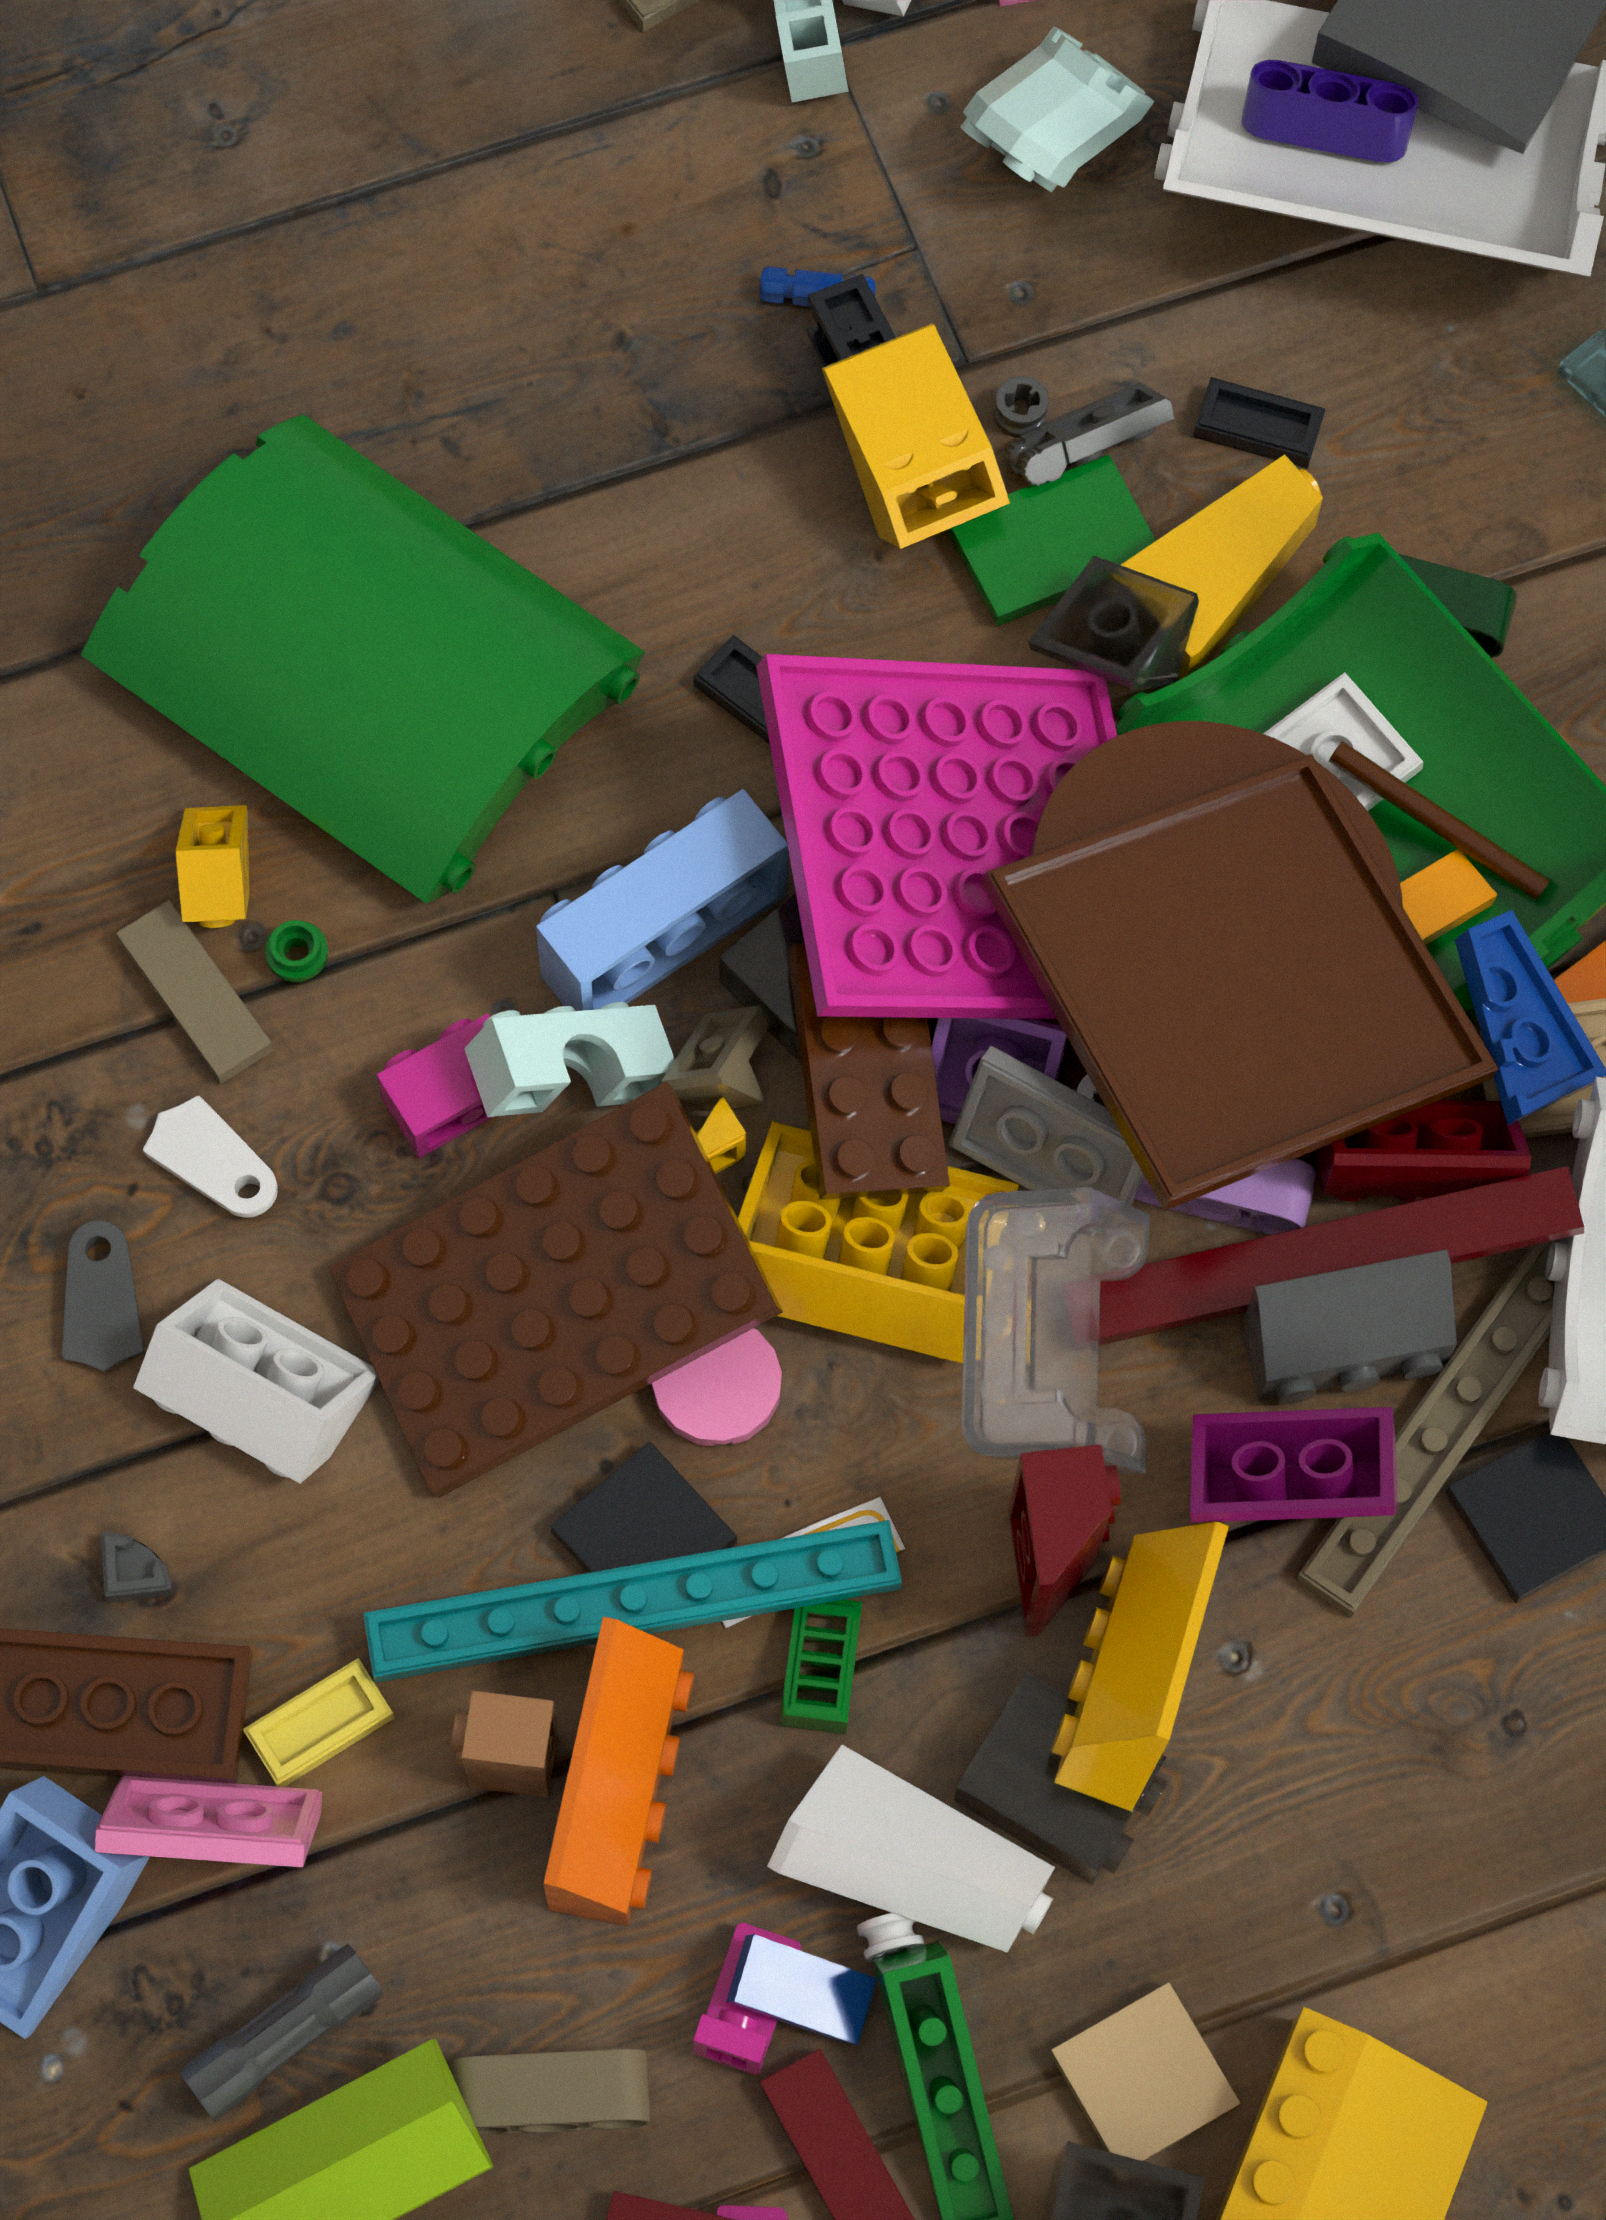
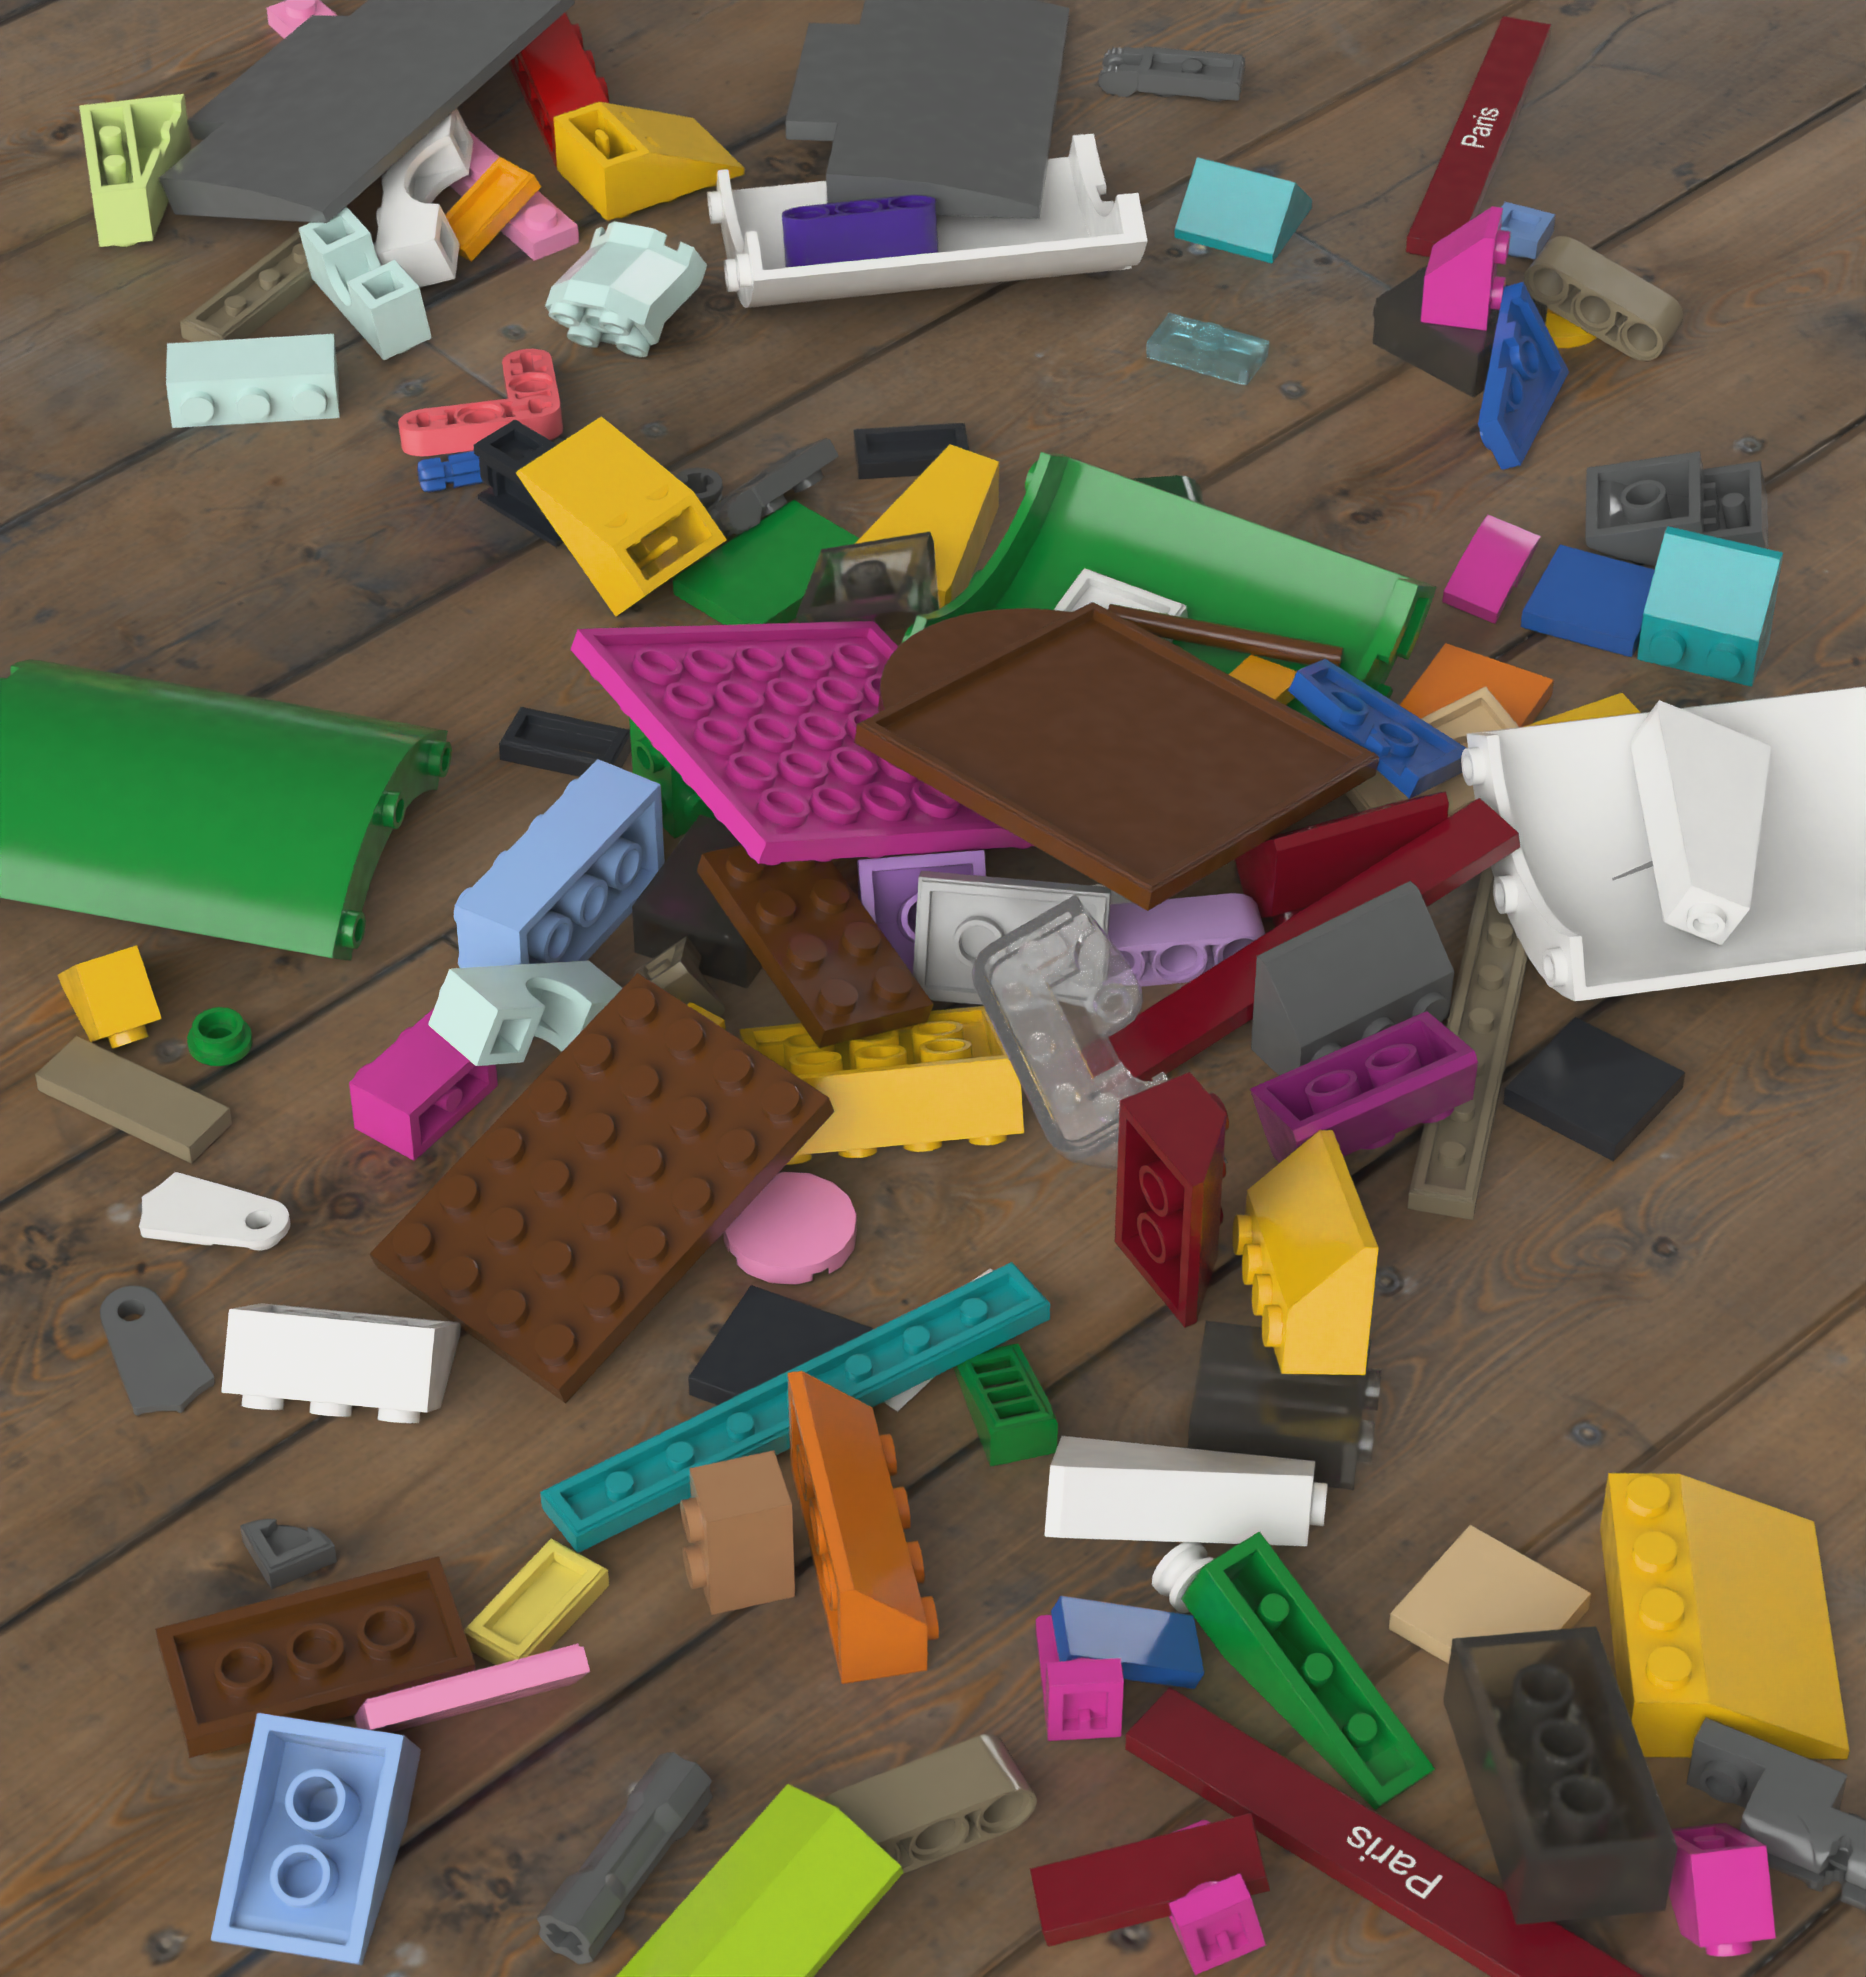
camera: 20 degrees left, 25 degrees down
(647, 95) = (252, 380): none -> light aqua brick
(885, 239) = (456, 428): none -> coral beam

